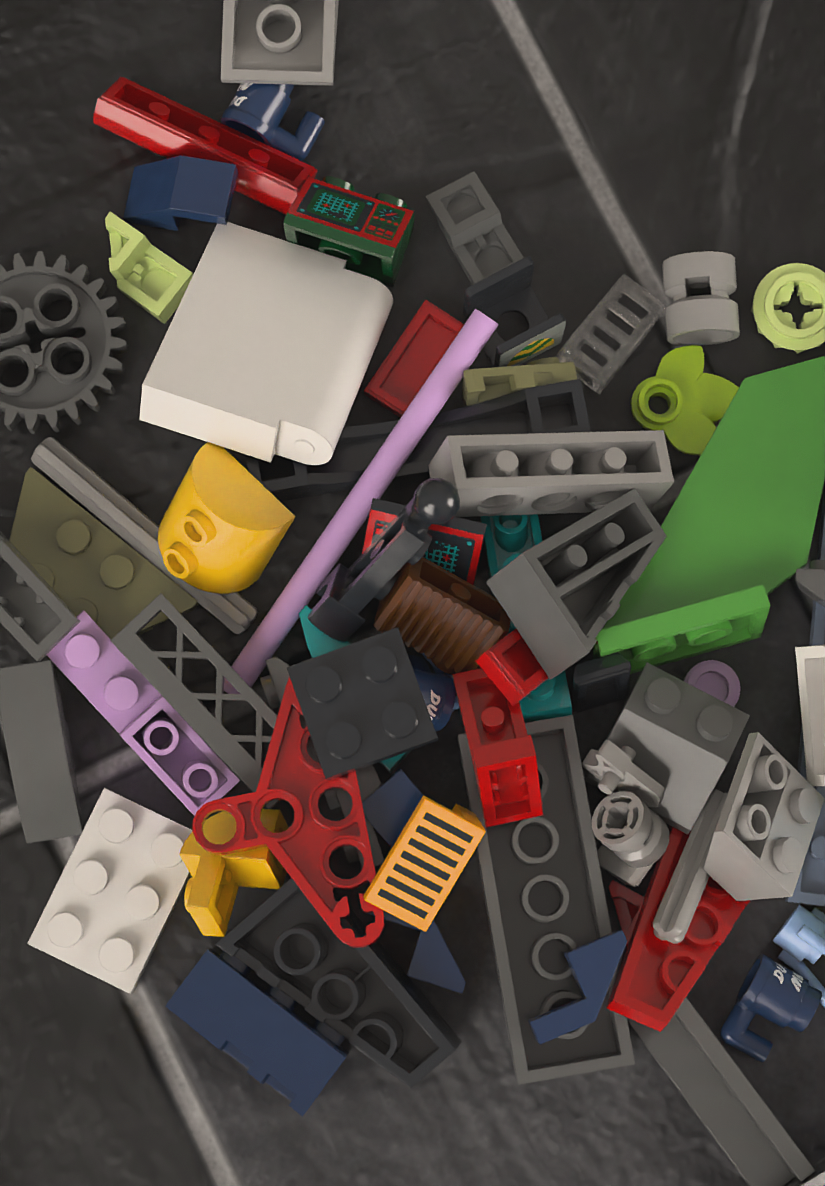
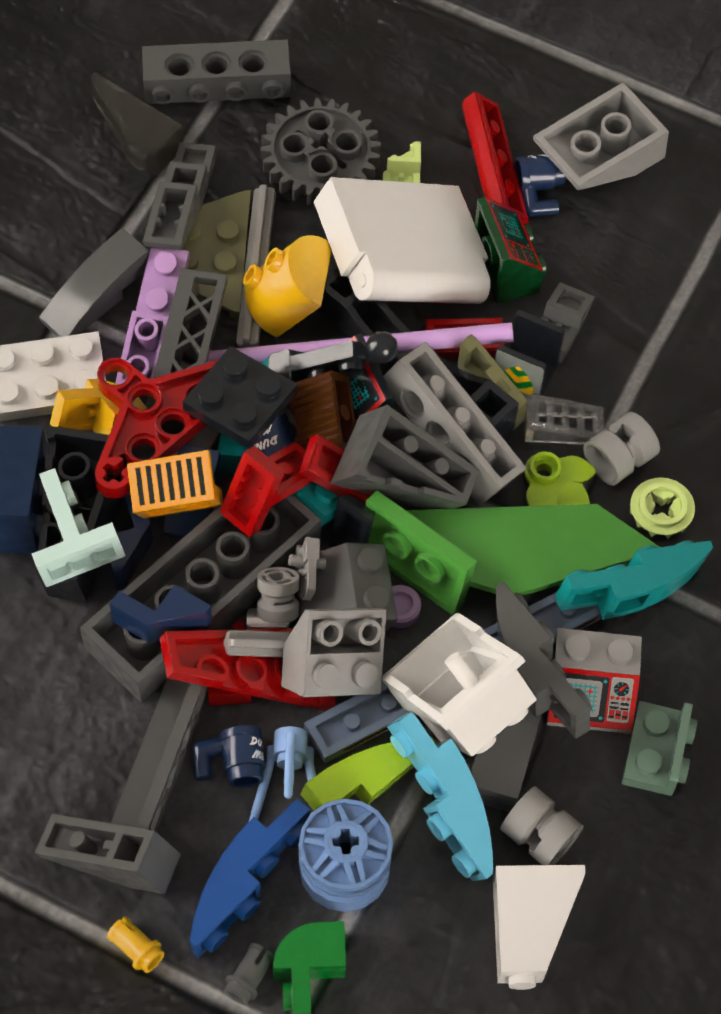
camera: 50 degrees right, 20 degrees down
(180, 188) = (460, 162): dark blue slope -> none
(400, 1018) = (81, 548): none -> light aqua bracket

